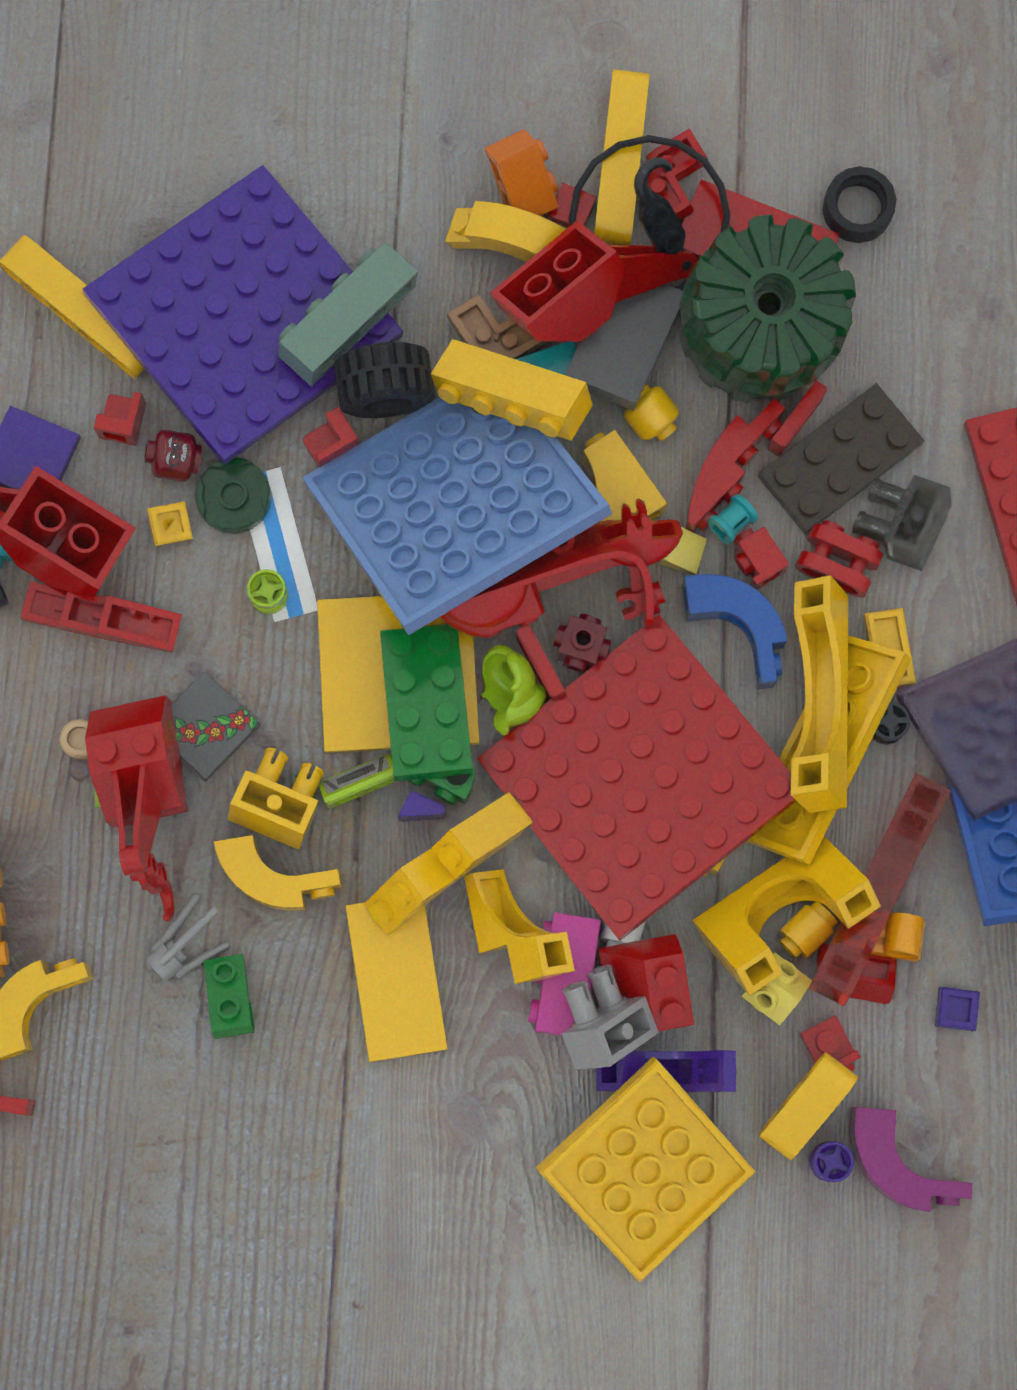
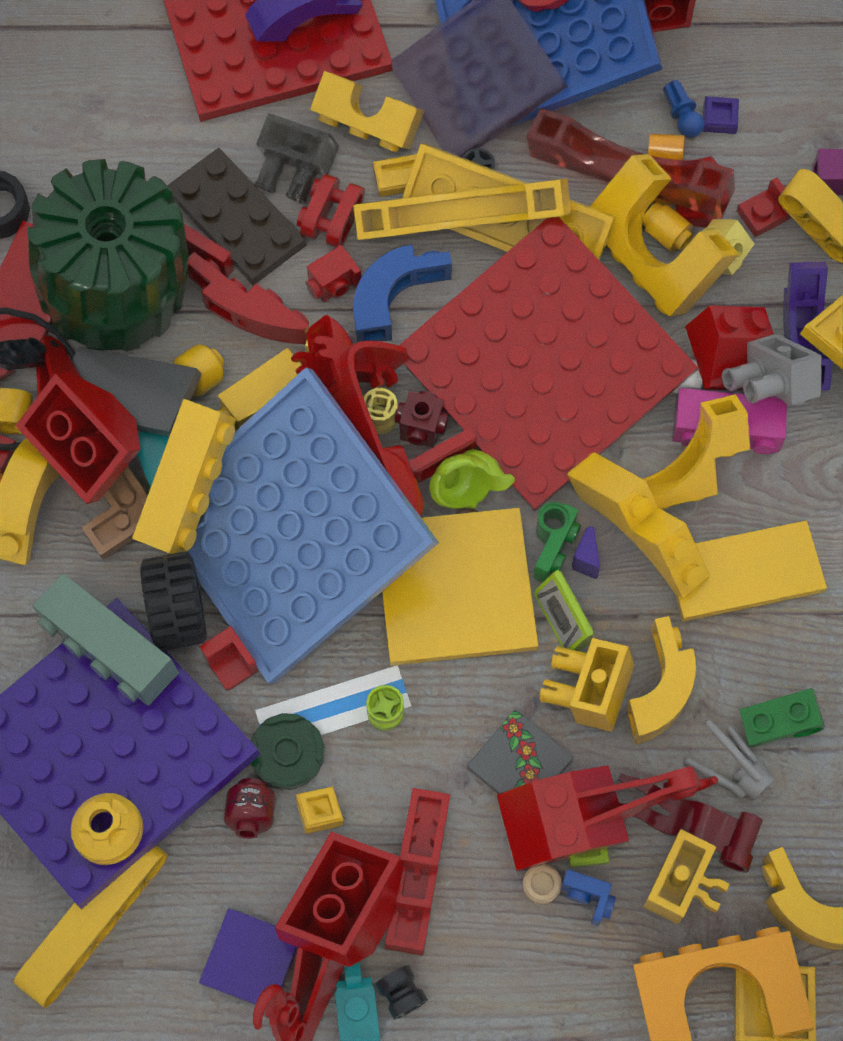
camera: 90 degrees left, 10 degrees down
(67, 778) = (586, 888): none -> blue bracket
(67, 872) = (680, 879): none -> yellow brick
(120, 911) = (730, 835): none -> dark red flag
(121, 419) = (209, 866): red panel -> none
(156, 329) = (118, 840): none -> yellow piece
(426, 703) = (492, 549): green plate -> none
(596, 605) = (382, 417): none -> light yellow wheel
(732, 519) = (301, 291): teal bush -> none
(944, 970) = (689, 122): none -> blue axle
(971, 572) = (339, 102): none -> yellow arch

